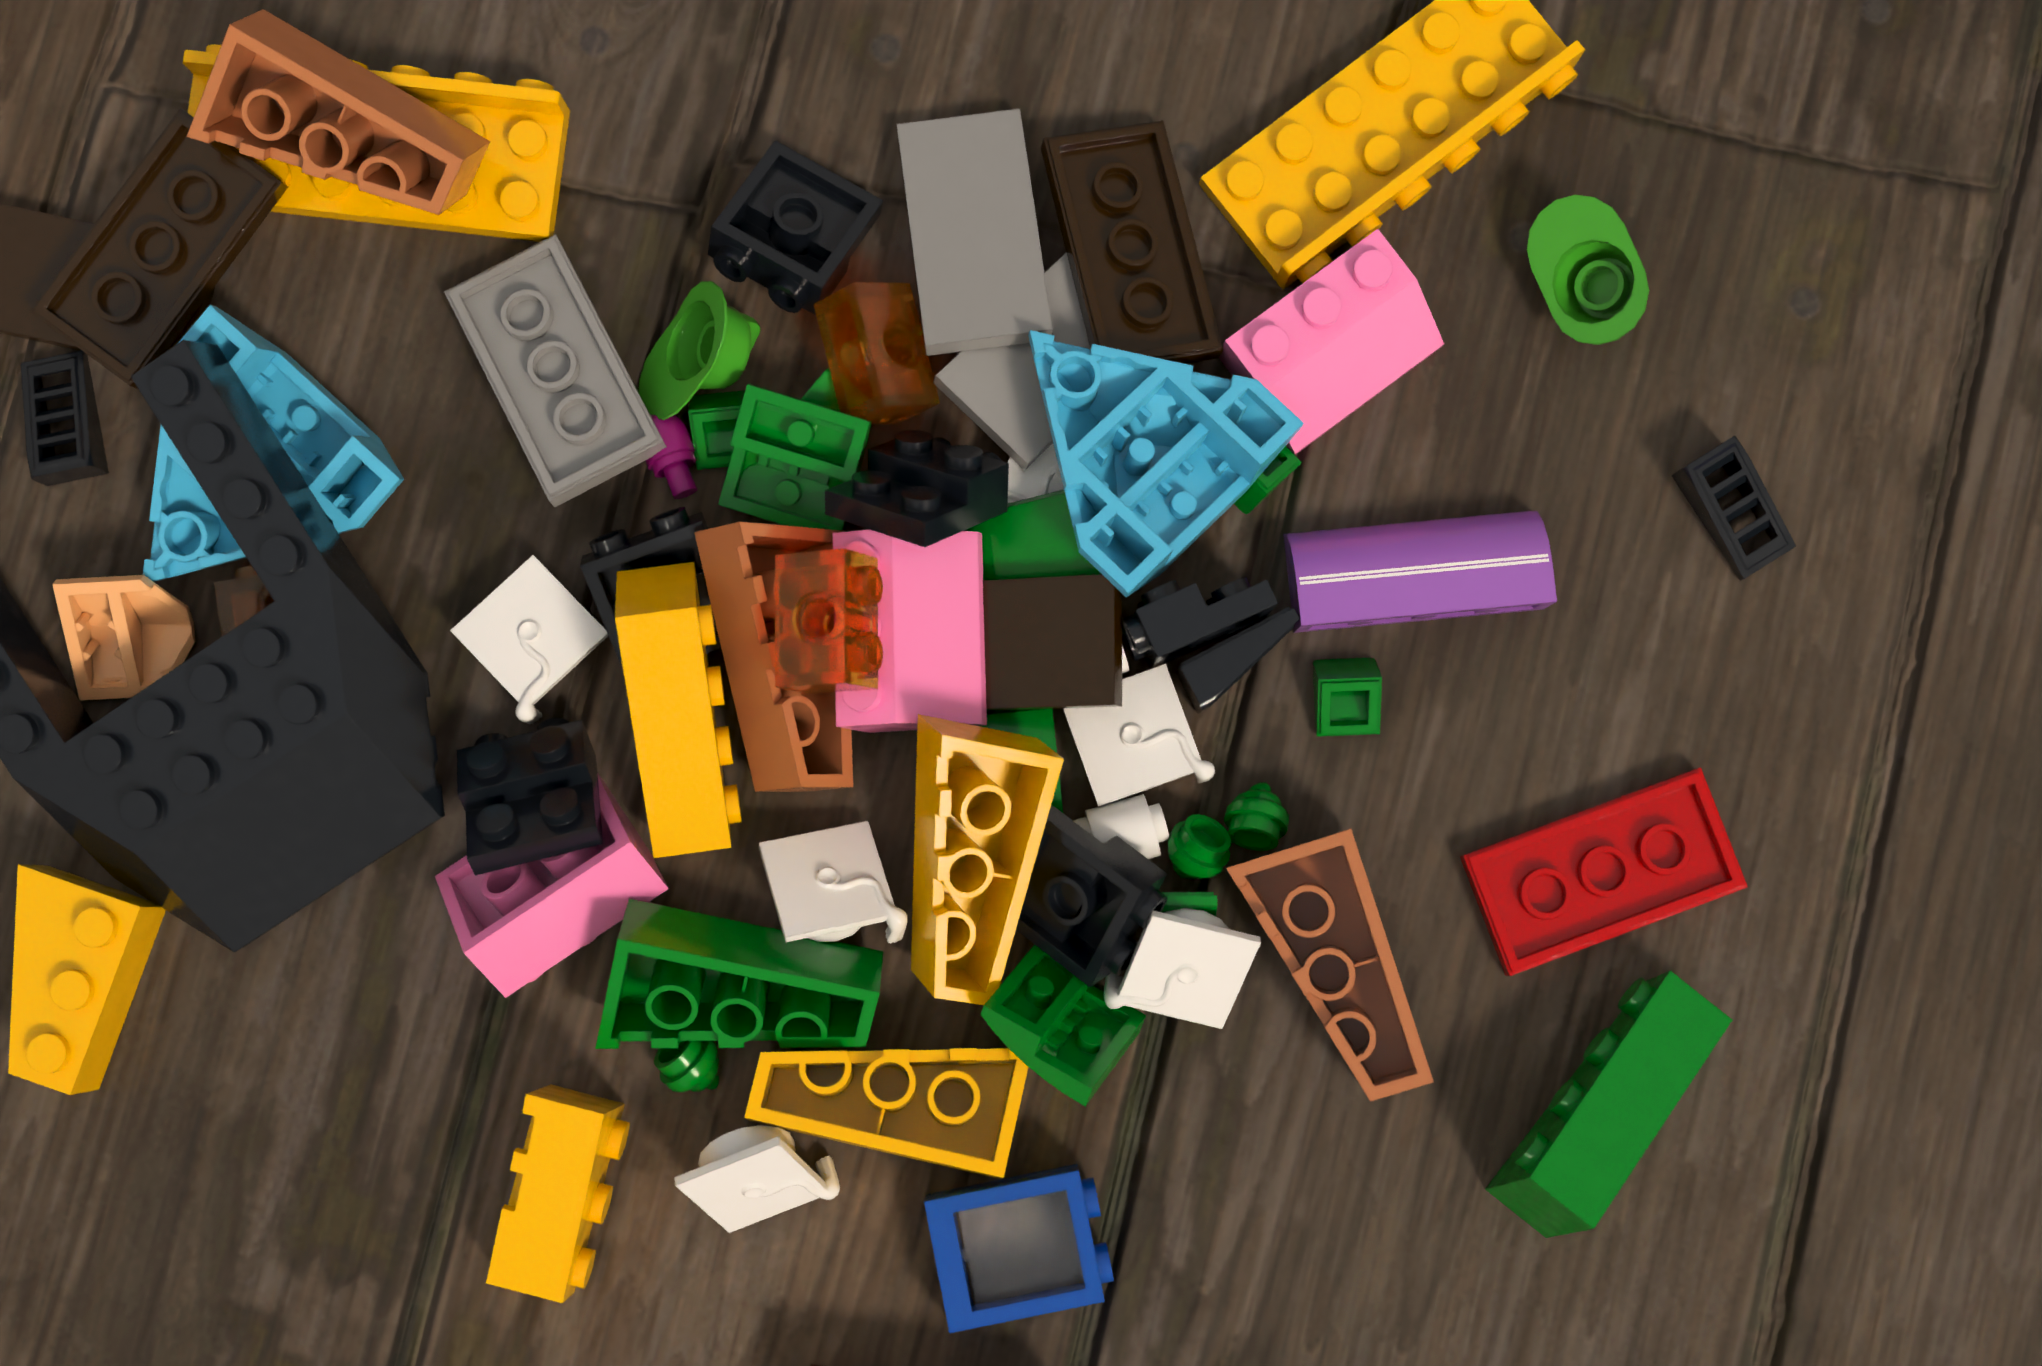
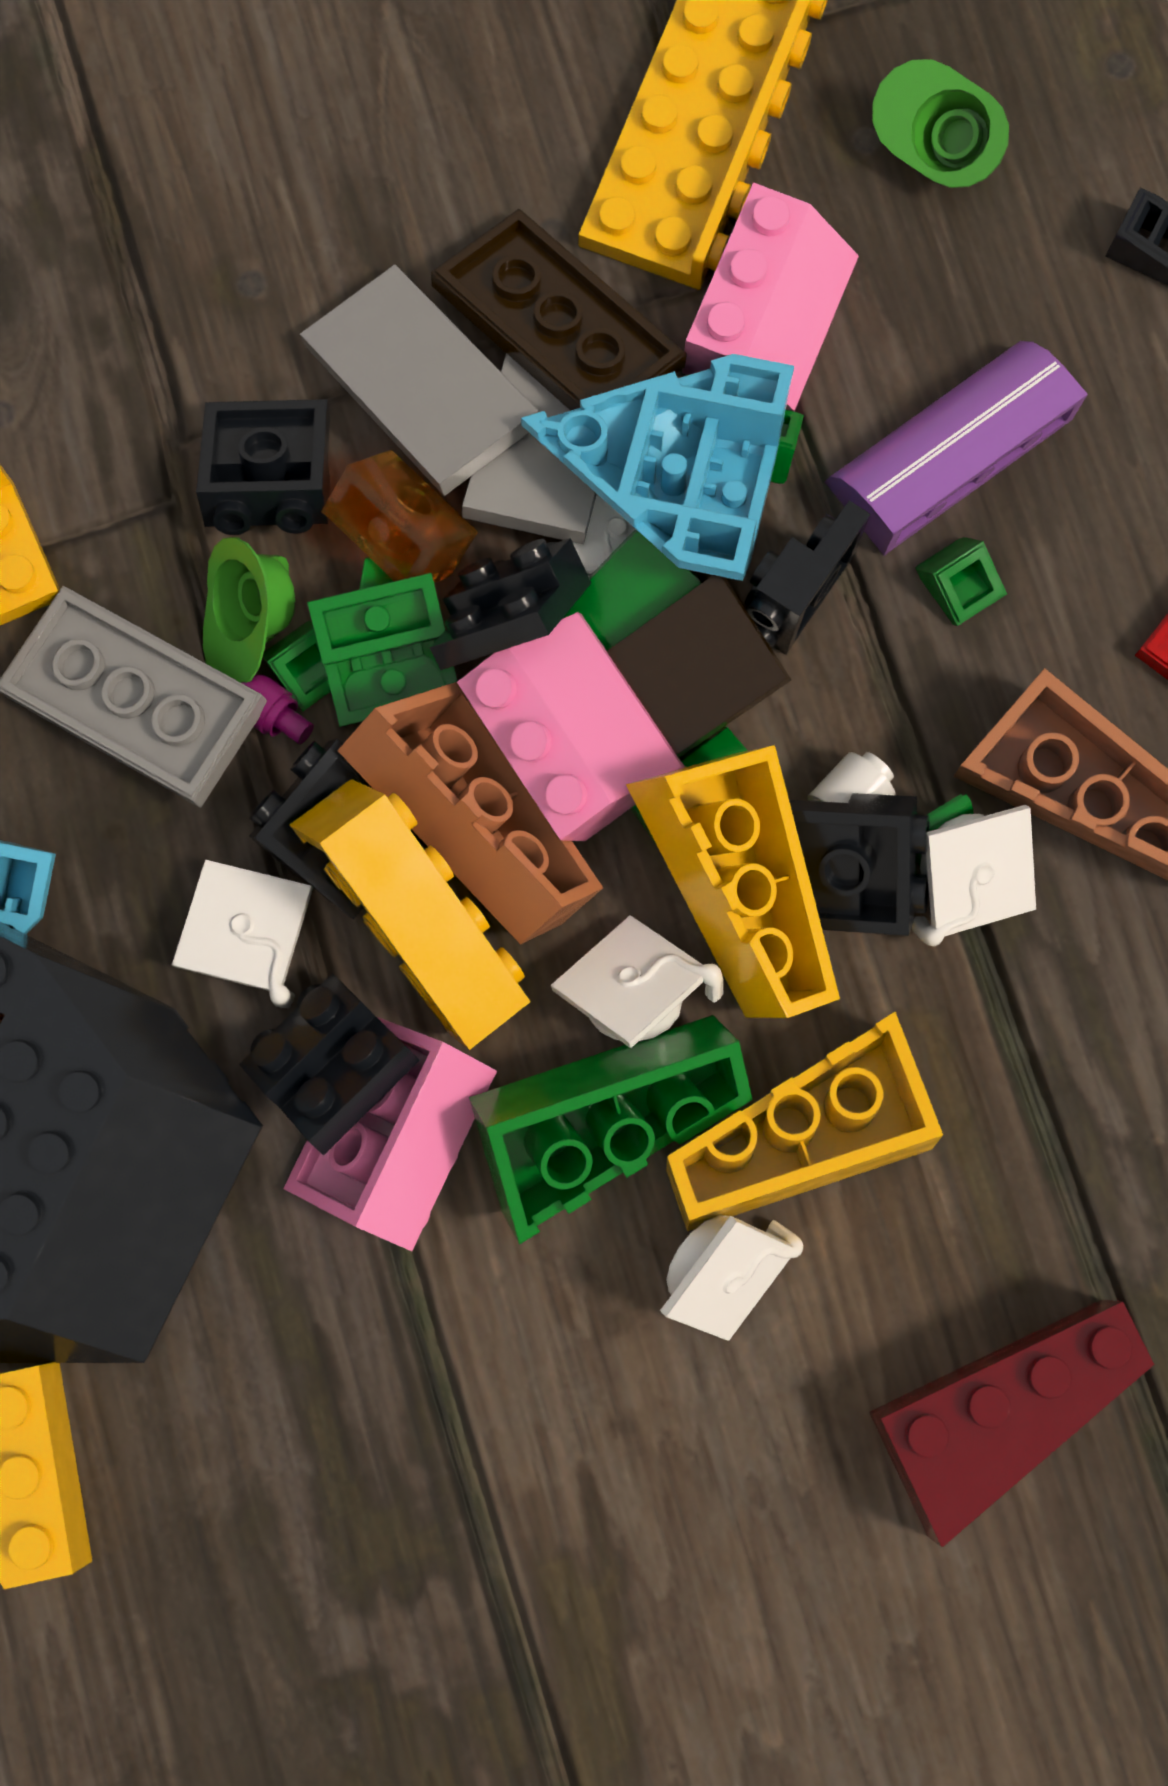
camera: 30 degrees left, 5 degrees down
(557, 1193) = (562, 1396): yellow wedge -> none
(689, 1066) = (607, 1215): green plate -> none
(806, 595) = (471, 732): clear orange brick -> none
(1023, 1247) = (985, 1196): window -> none
(1060, 1025) = (905, 981): green slope -> none
(1137, 743) = (816, 712): white hat -> none
(1198, 847) = (922, 770): green plate -> none
(1221, 666) = (844, 616): black slope -> none
(1257, 818) = (954, 719): green plate -> none

